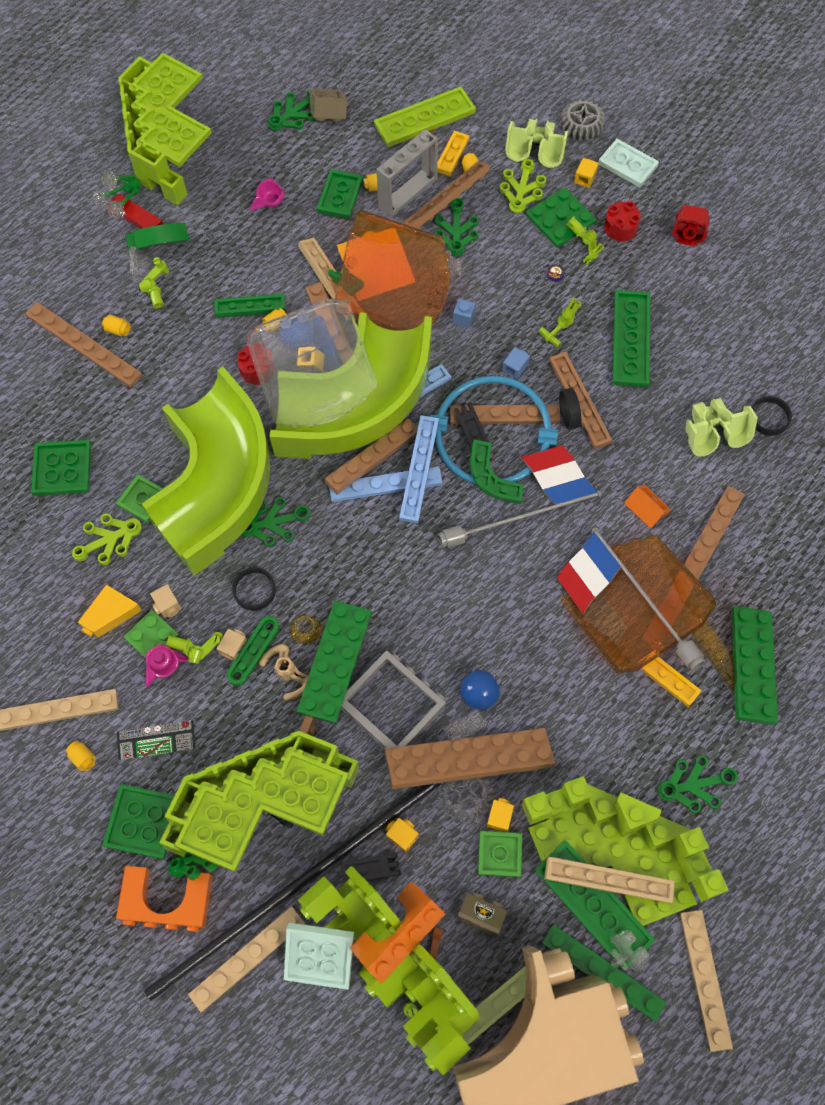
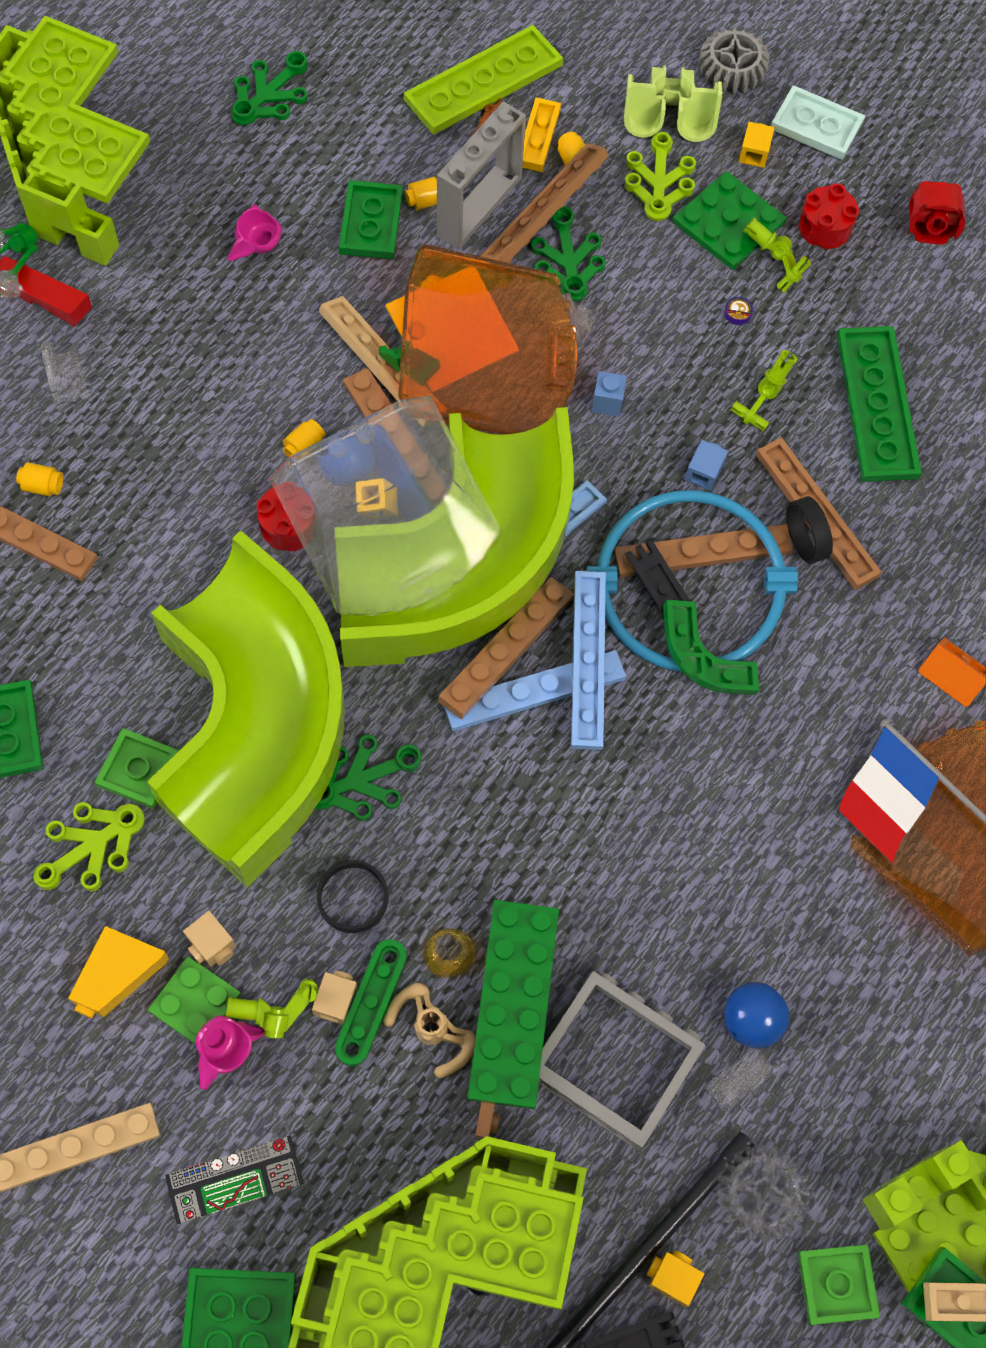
camera: 15 degrees left, 0 degrees up
(80, 756) = (112, 1229): yellow brick -> none
(149, 285) = (83, 405): lime pin -> none
(157, 235) = (83, 321): green arch -> none
(248, 305) = (256, 420): green plate -> none
(327, 104) = (325, 74): dark tan slope -> none
(469, 758) = (760, 1133): medium nougat plate -> none
(500, 815) = (827, 1219): yellow brick -> none
(557, 477) = (808, 644): flag -> none

